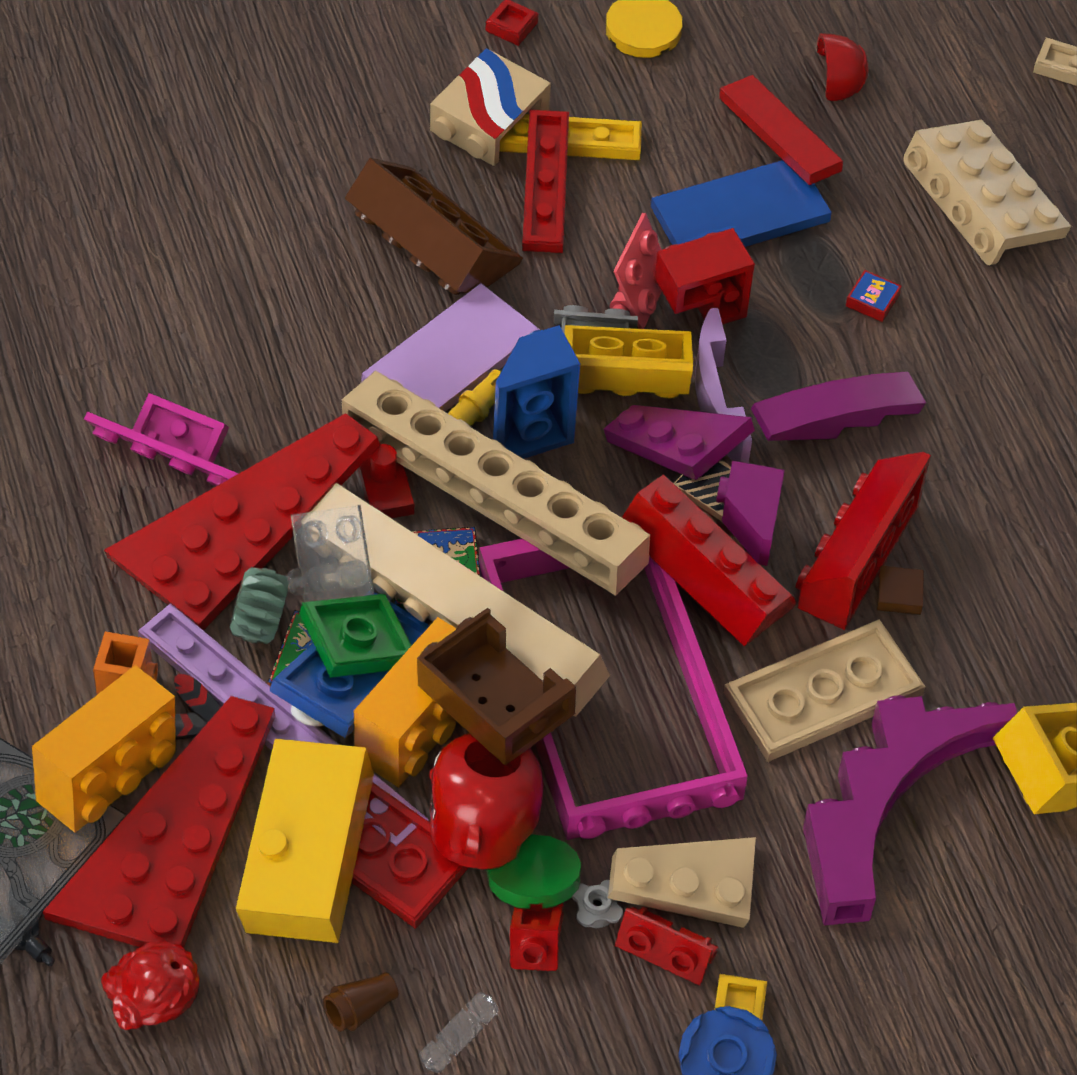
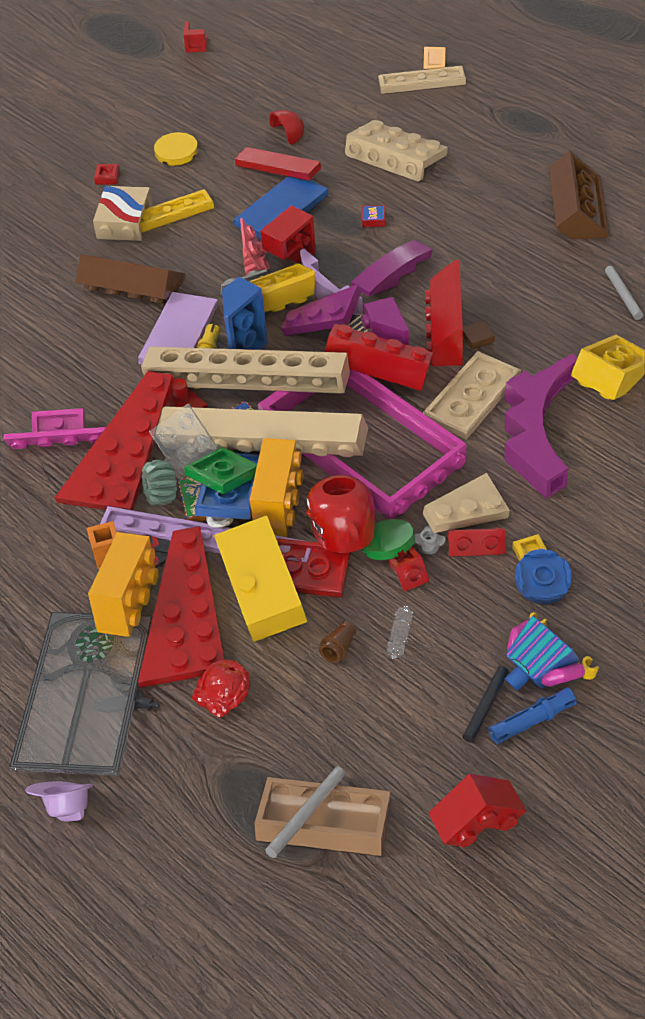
camera: 20 degrees left, 5 degrees down
(492, 689) = (317, 456): reddish brown piece -> none
(545, 181) = (174, 234): red tile -> none

